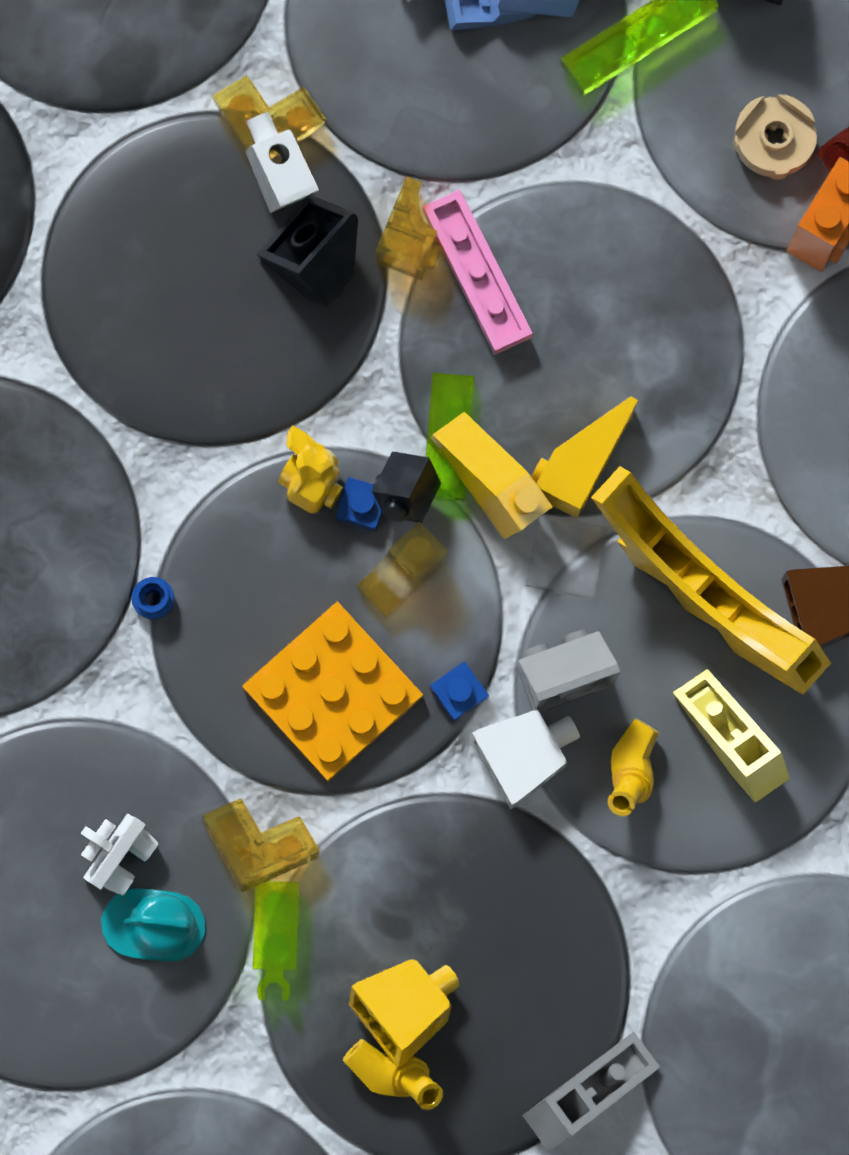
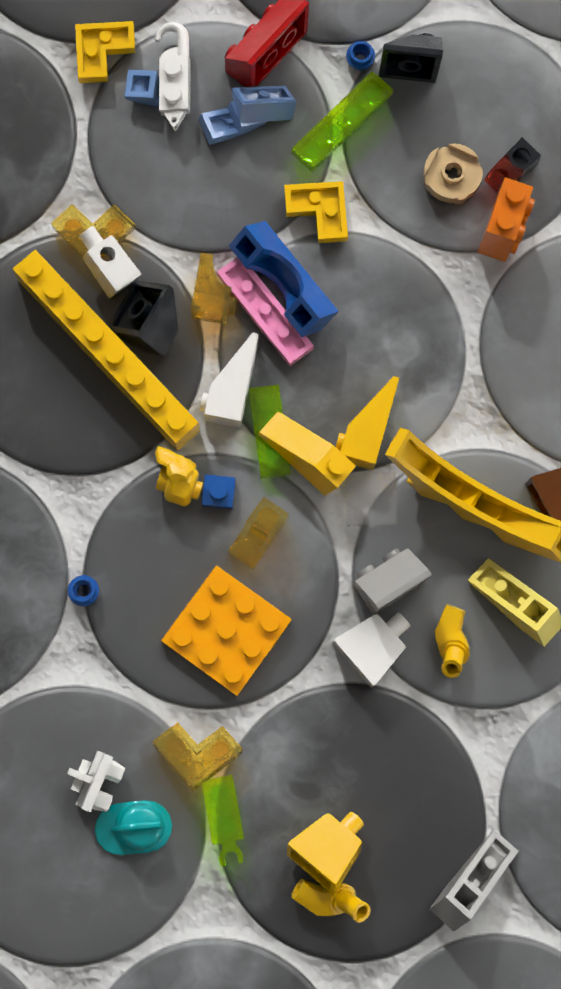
camera: 15 degrees left, 0 degrees up
(251, 283) = (106, 350): none -> yellow brick
(406, 487) = (248, 473): black brick -> none
(407, 368) = (230, 388): none -> white slope
(459, 691) = (316, 611): blue plate -> none
(492, 192) = (264, 252): none -> blue arch
(589, 138) = (323, 200): none -> yellow plate

